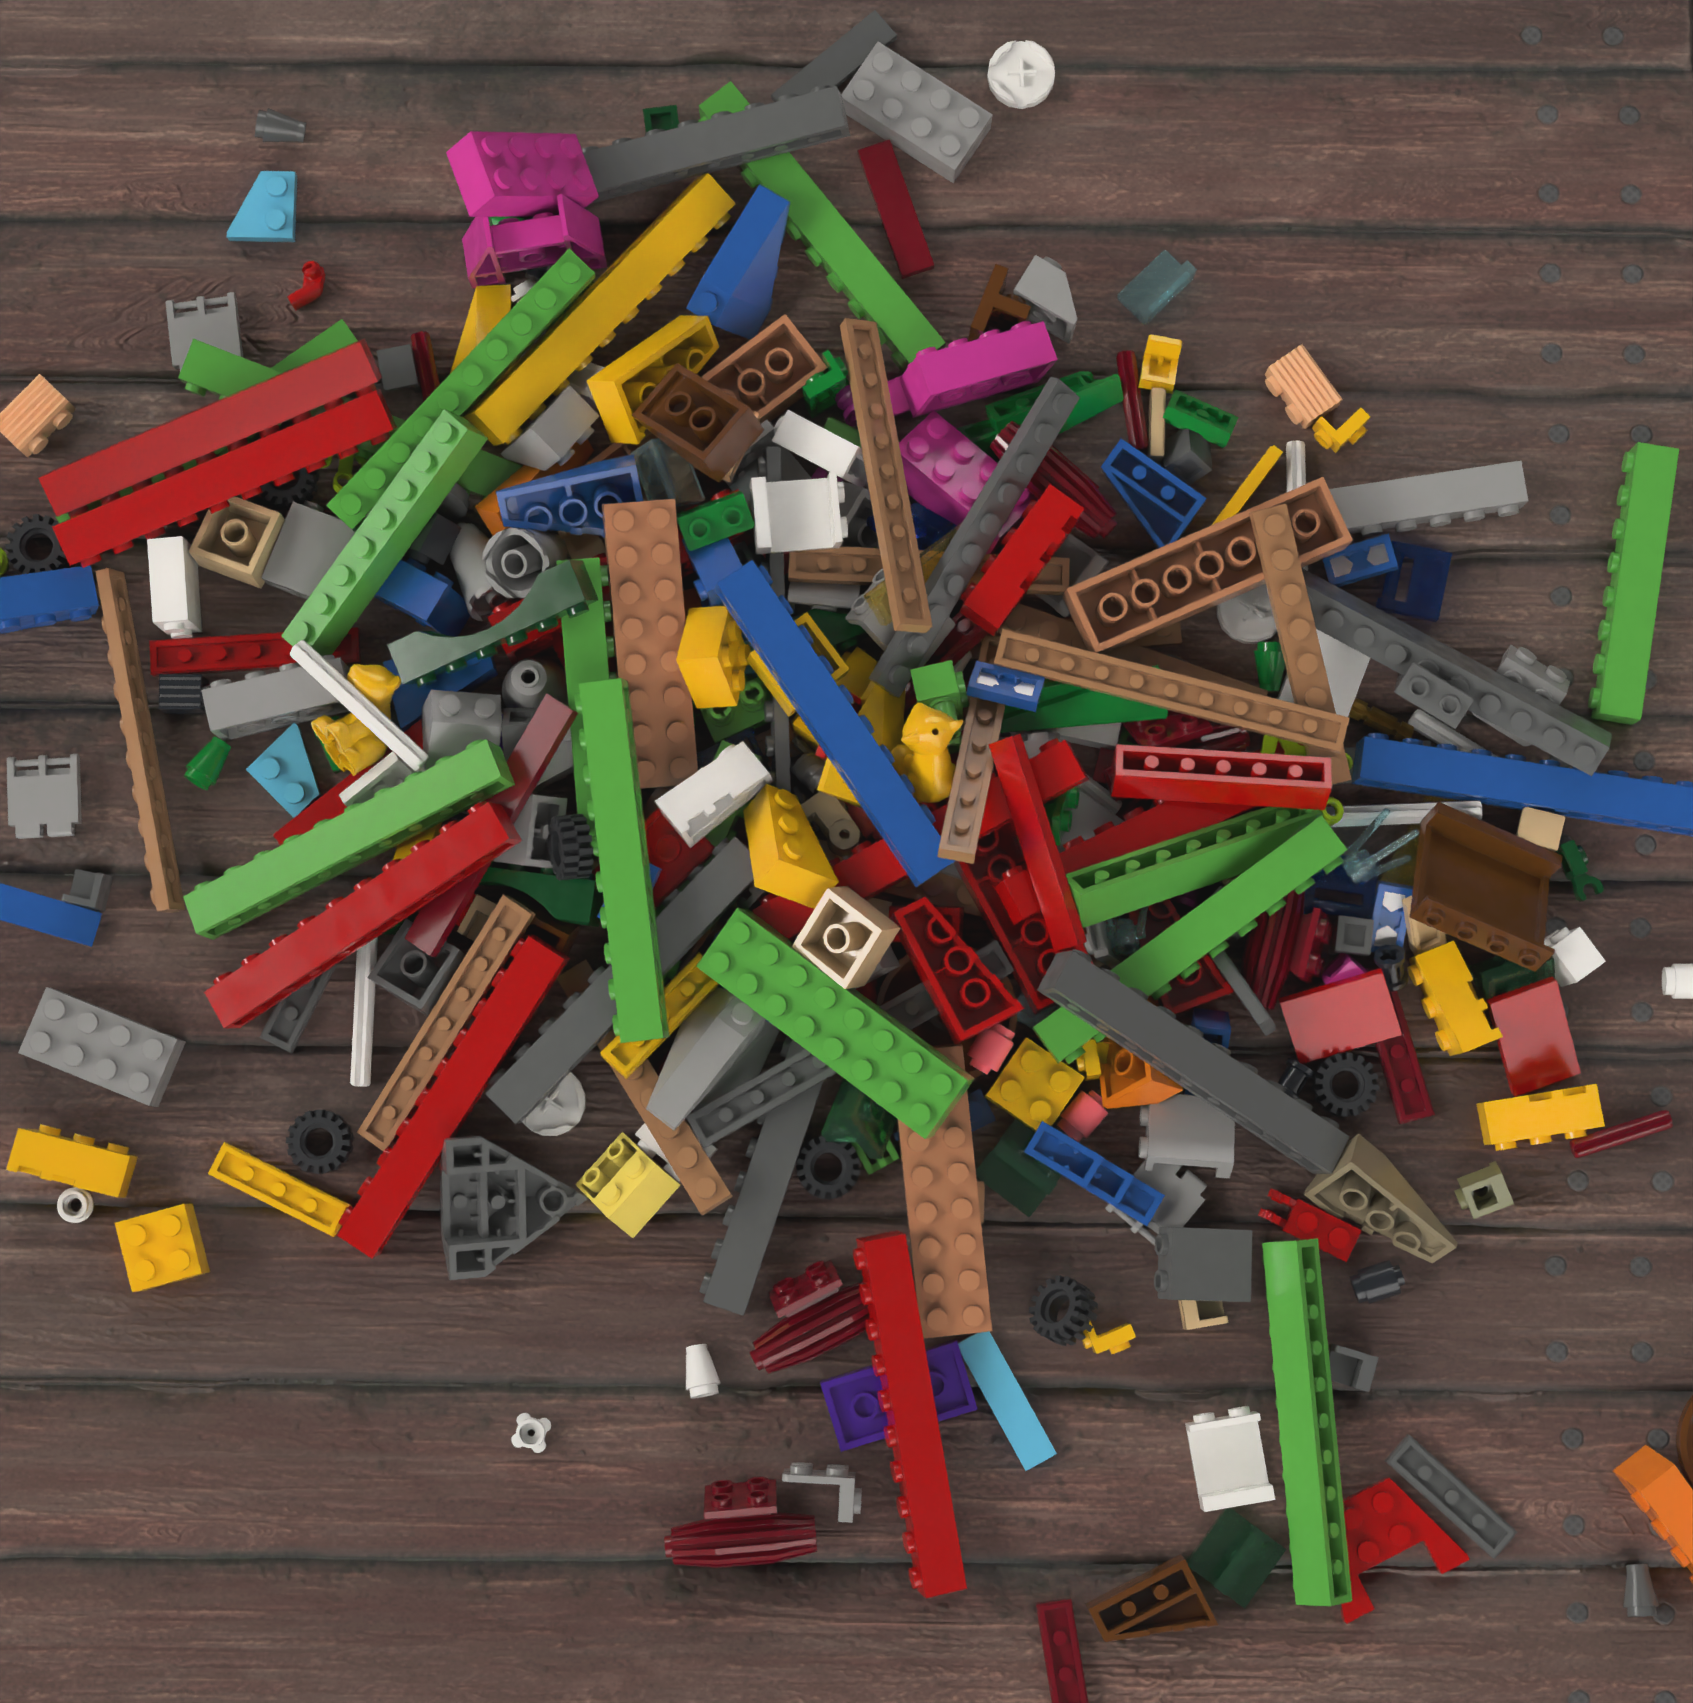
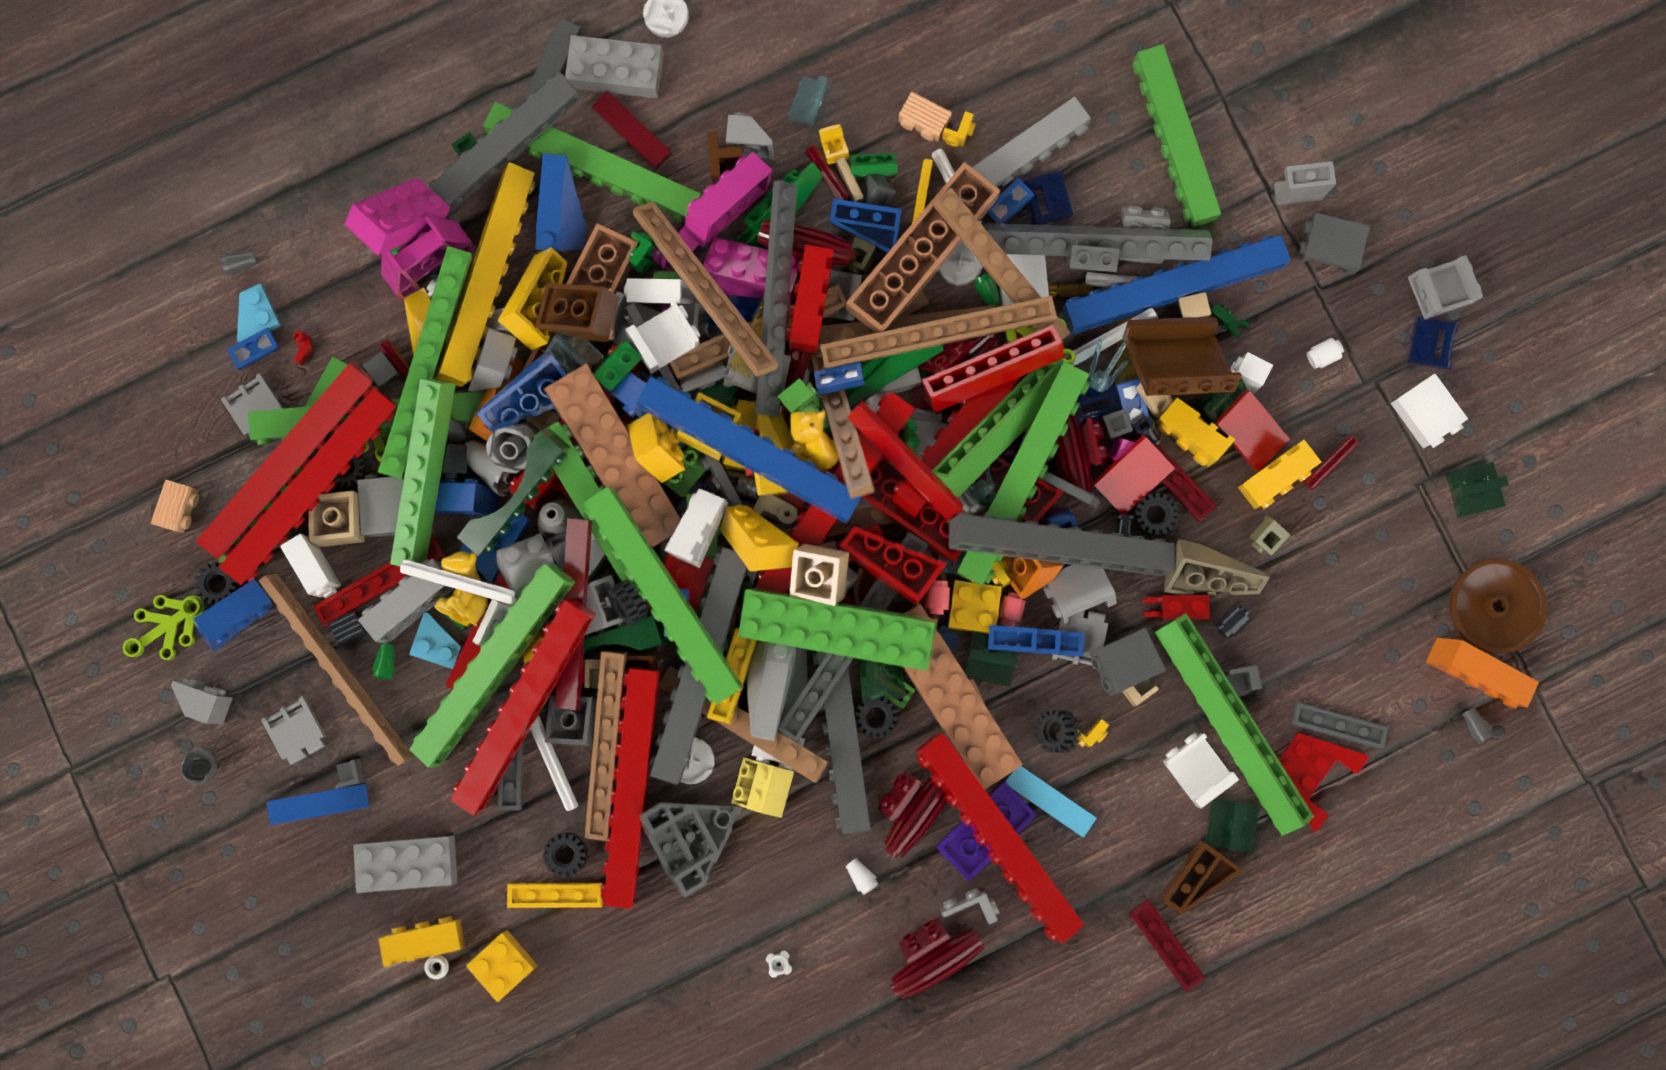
camera: 20 degrees left, 0 degrees up
(242, 255) = (253, 349): none -> blue piece
(1130, 528) = (865, 250): none -> olive brick

